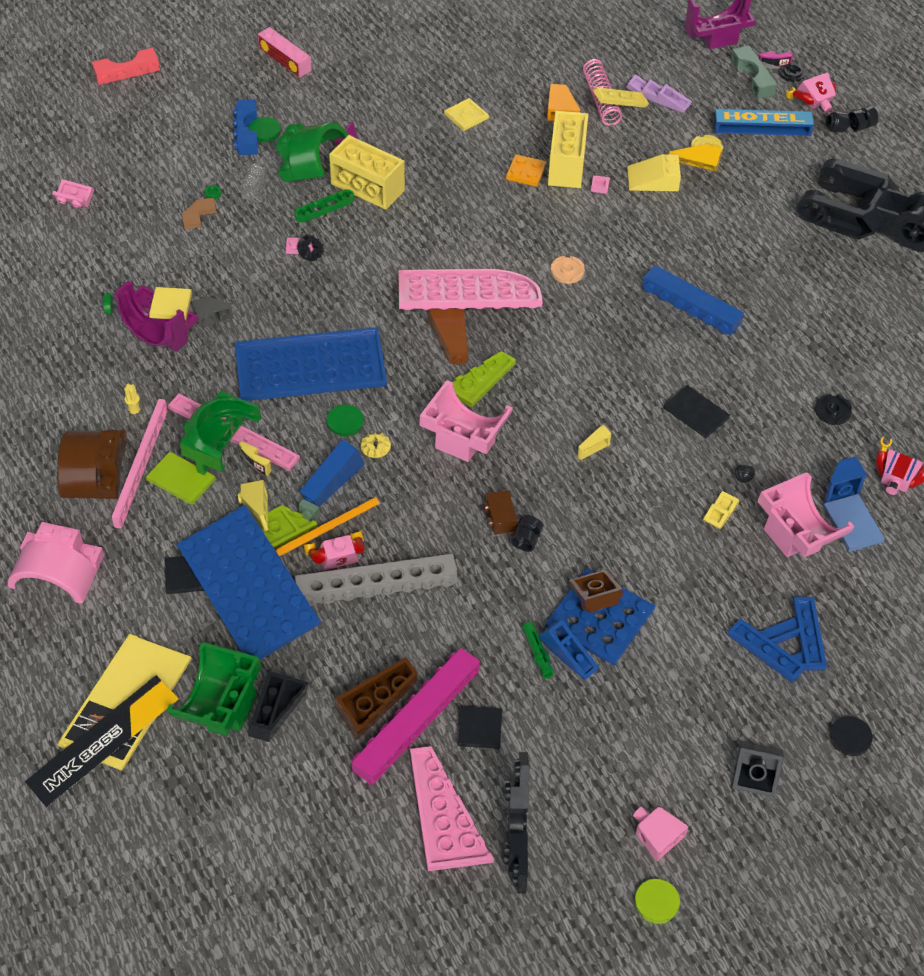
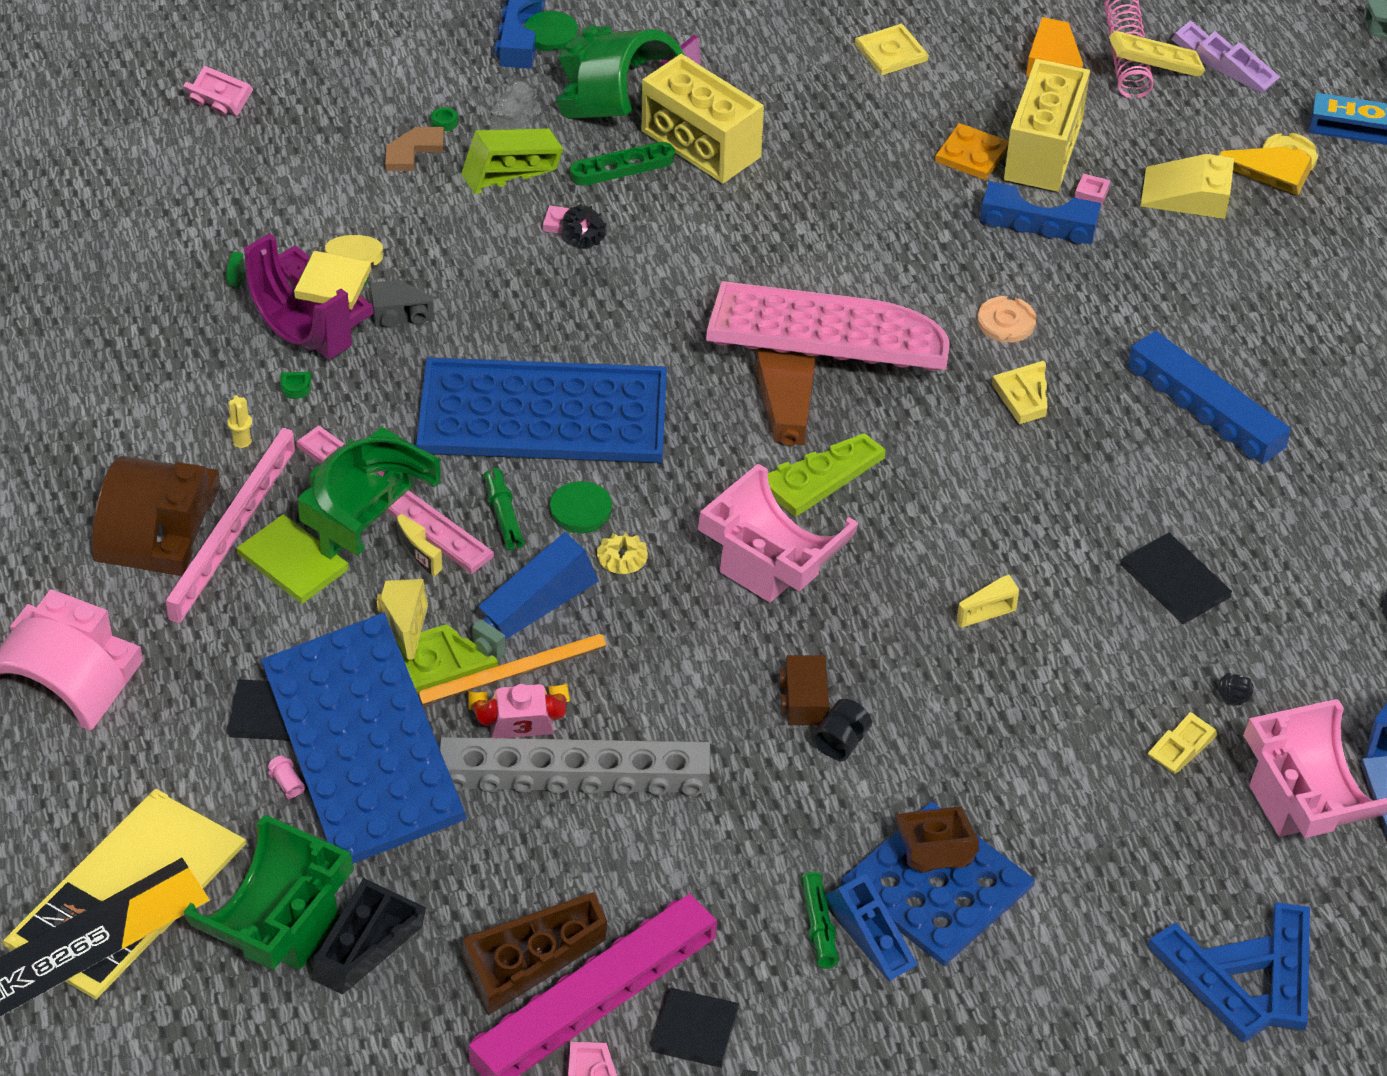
camera: 10 degrees right, 5 degrees down
(159, 369) = (295, 384): none -> green tile
(177, 280) = (356, 247): none -> light yellow tile
(202, 609) = (282, 770): none -> bright pink pin
(257, 209) = (508, 155): none -> lime wedge
(297, 423) = (500, 499): none -> green pin
(555, 203) = (1072, 221): none -> blue arch
(587, 312) = (1023, 391): none -> light yellow wing

